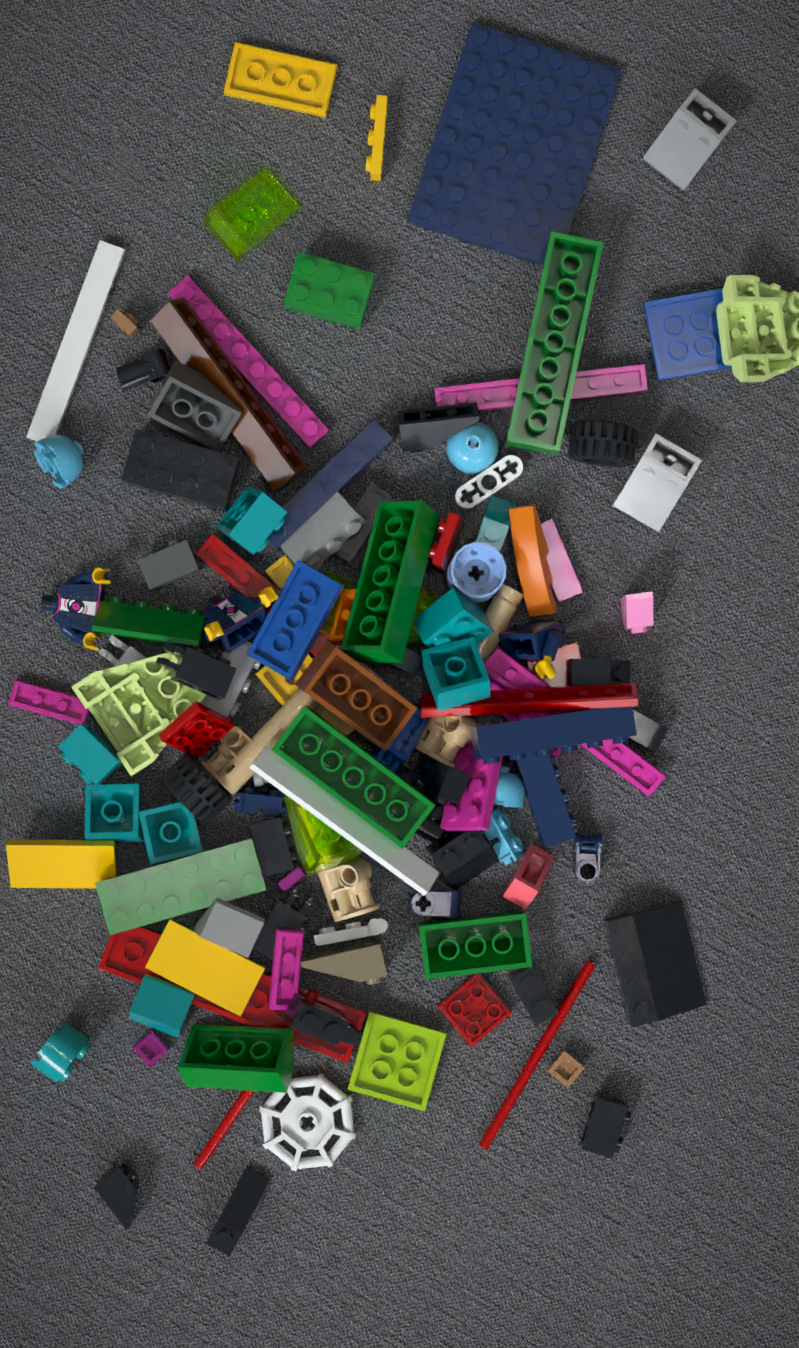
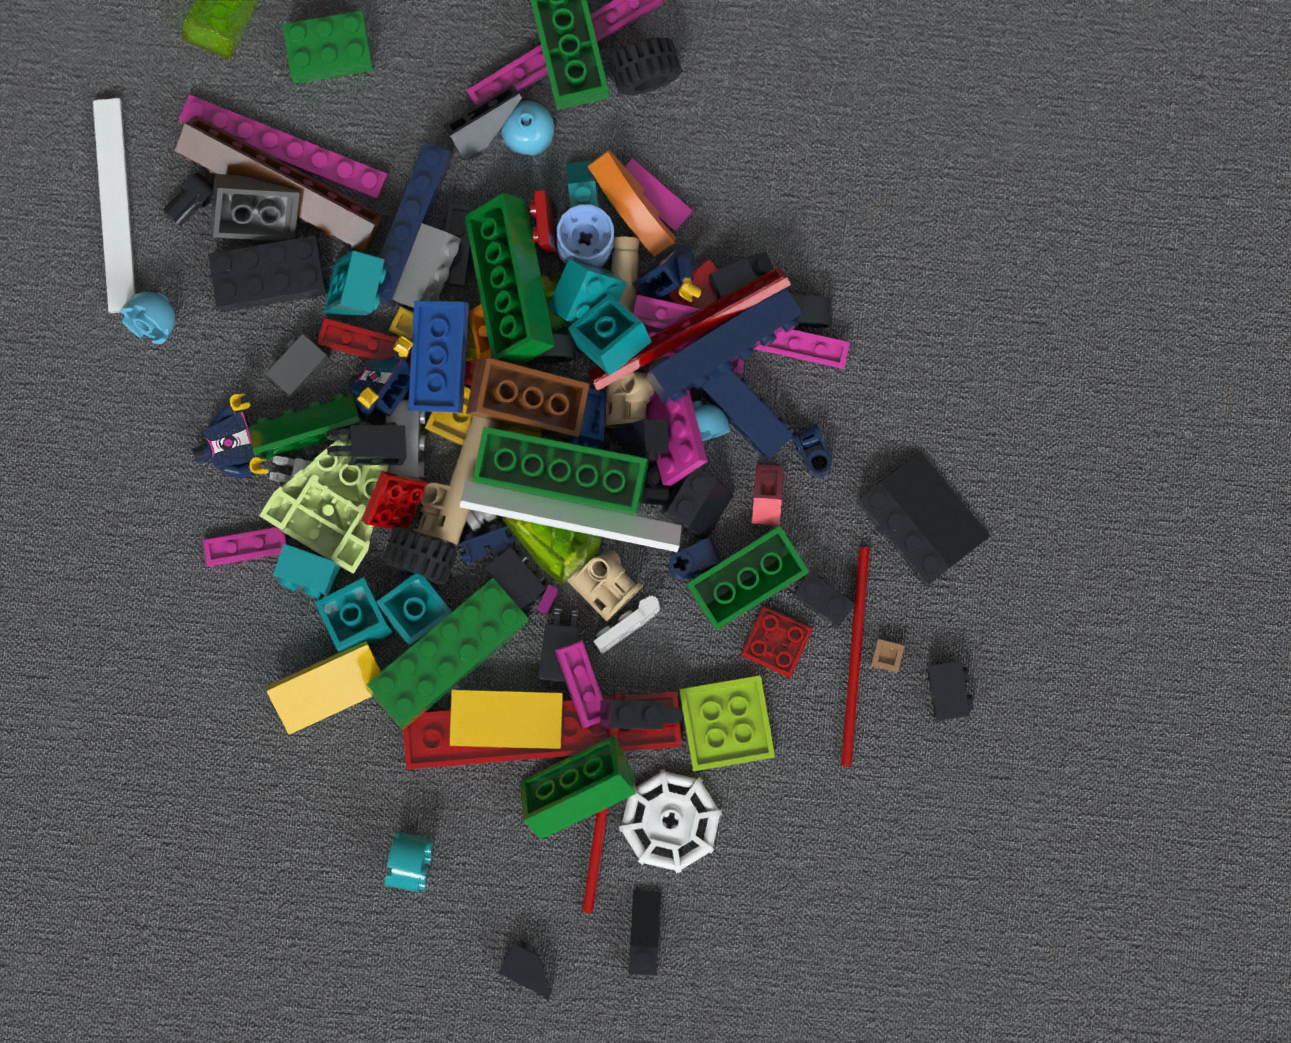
camera: 20 degrees left, 5 degrees down
(126, 323) = (153, 164): medium nougat plate -> none
(151, 1048) = (491, 822): magenta tile -> none
(161, 1005) = (482, 776): teal slope -> none
(230, 927) = (511, 668): light grey slope -> none
(354, 962) = (644, 647): dark tan slope -> none
(501, 465) = (561, 132): white beam -> none
(509, 846) = (734, 473): medium azure hinge -> none
(637, 611) = (751, 203): bright pink slope -> none
(657, 482) = (712, 79): slope -> none

